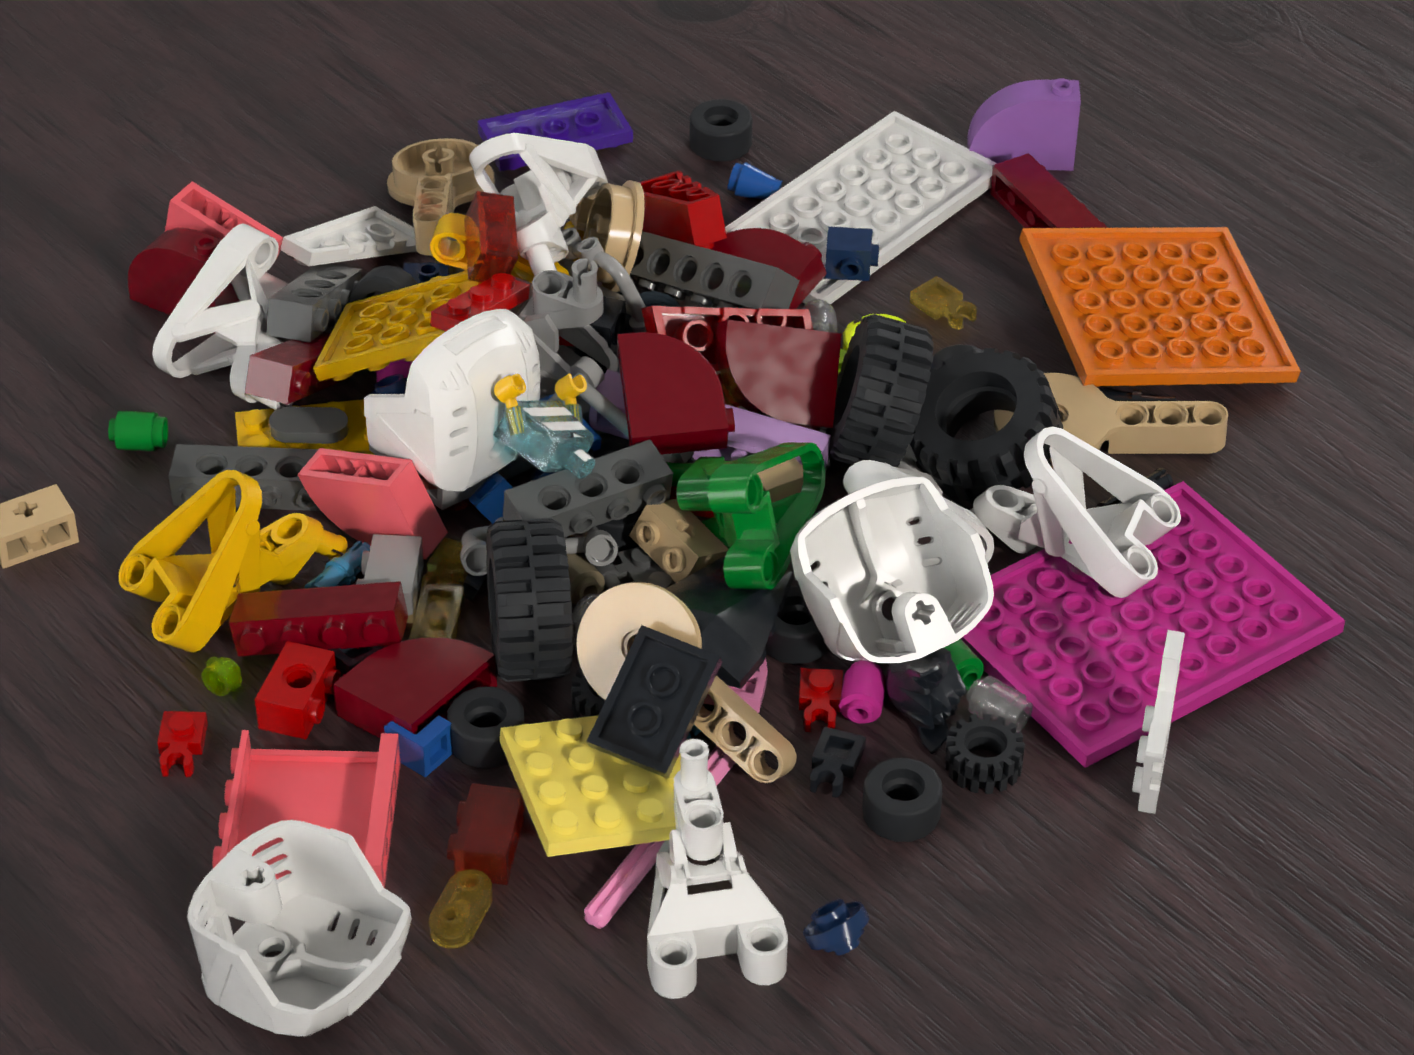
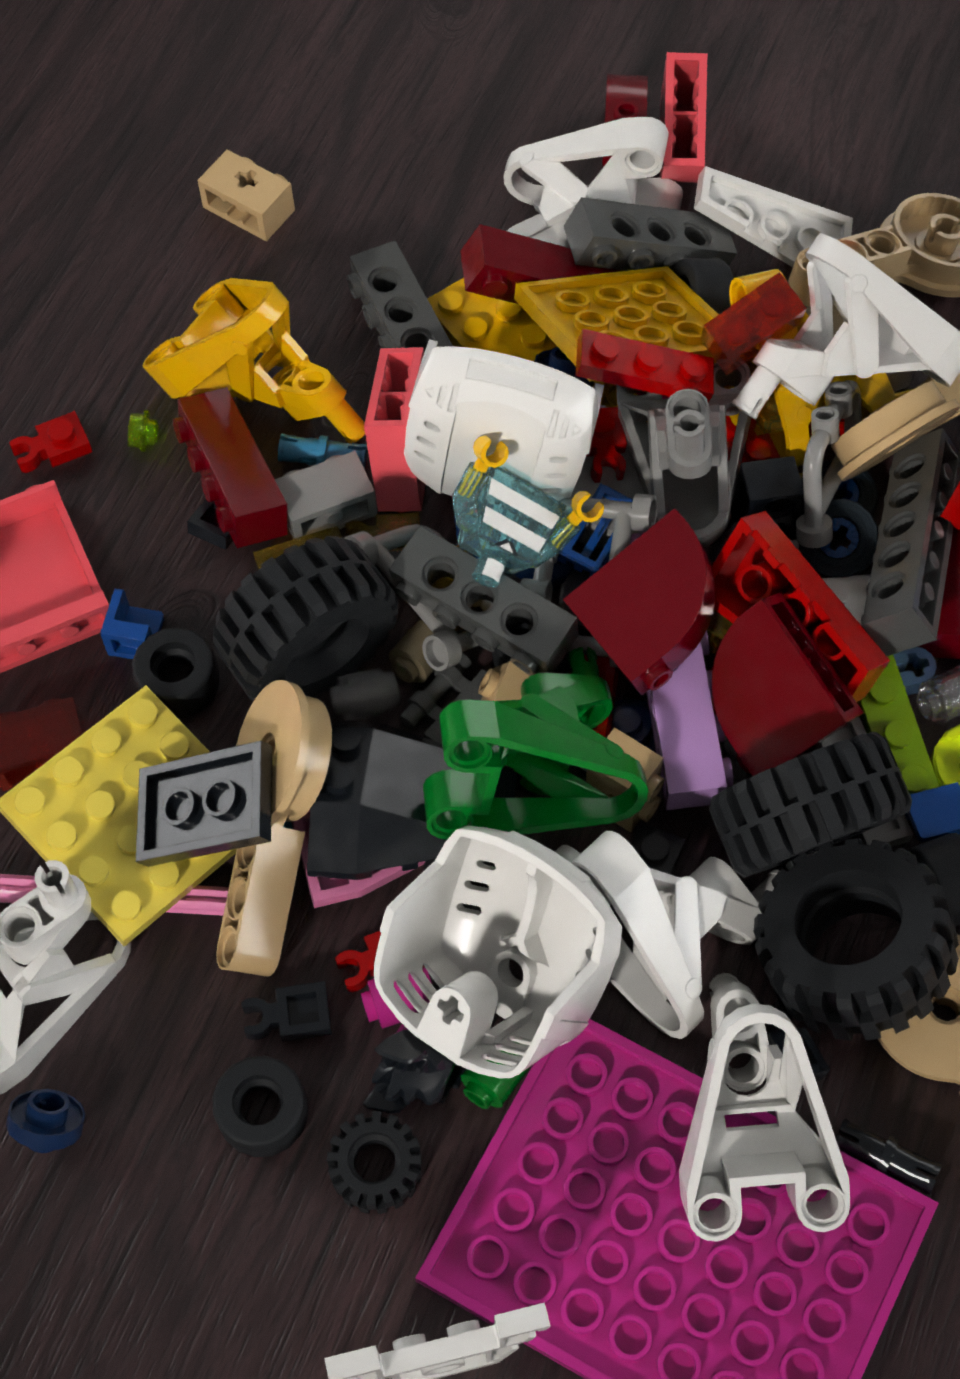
camera: 65 degrees right, 20 degrees up
(138, 431) = (415, 206): green brick -> none
(296, 690) = (127, 487): red brick -> none
(309, 425) = (491, 324): dark grey tile -> none
(411, 683) = (179, 579): dark red brick -> none
(999, 699) = (453, 1146): clear brick -> none

